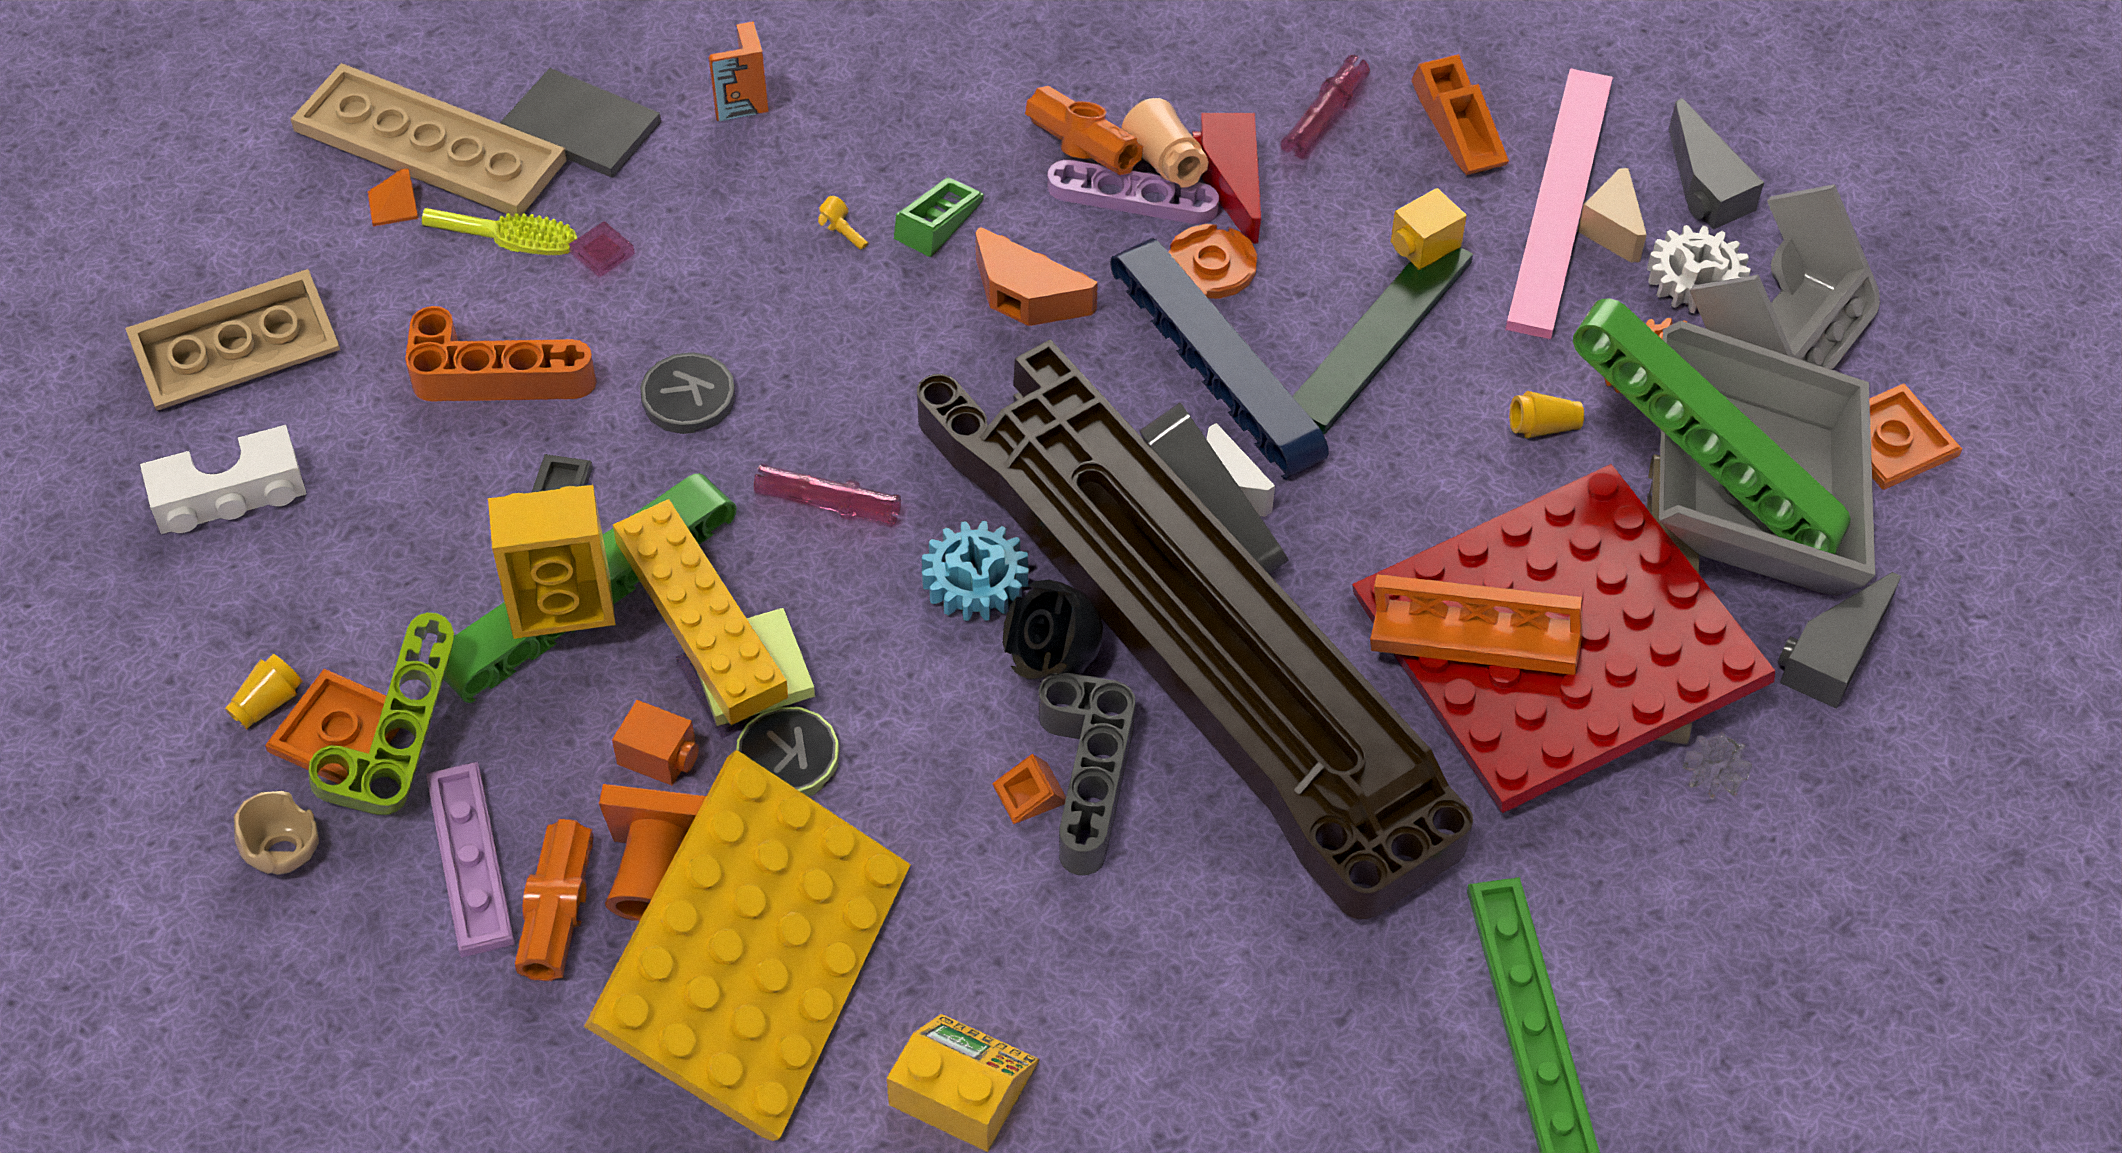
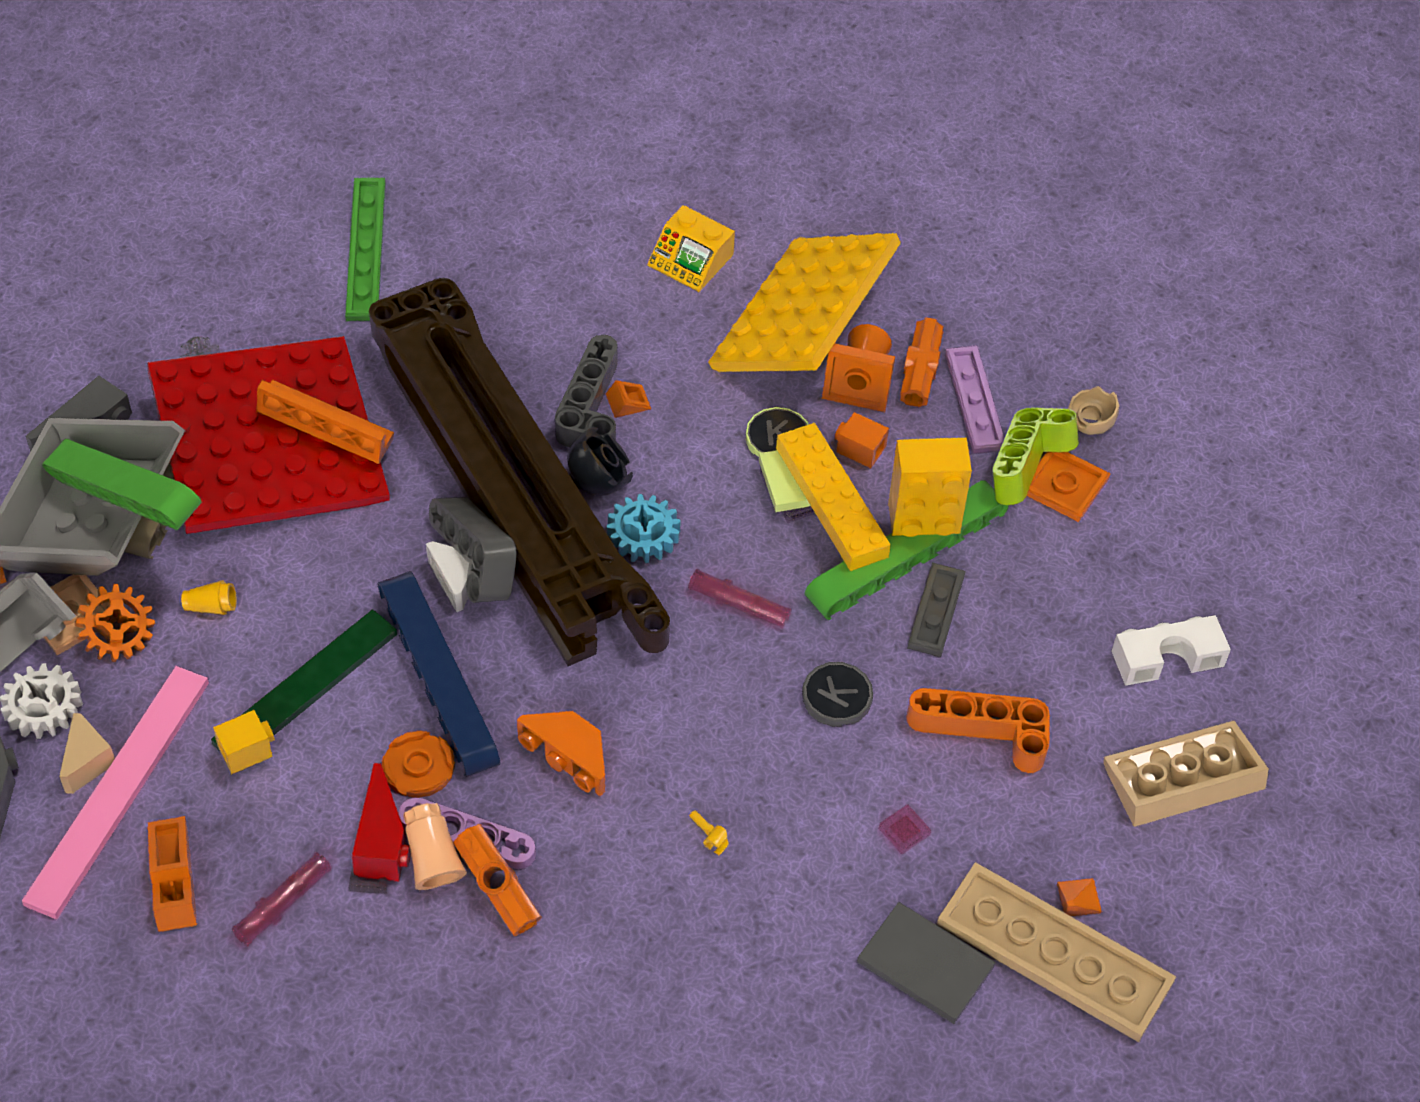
camera: 175 degrees left, 0 degrees up
(263, 691) = (1115, 505): yellow cone -> none
(512, 232) = (963, 851): neon yellow piece -> none
(739, 77) = (783, 949): orange panel -> none
(930, 236) = (647, 807): bright green slope -> none

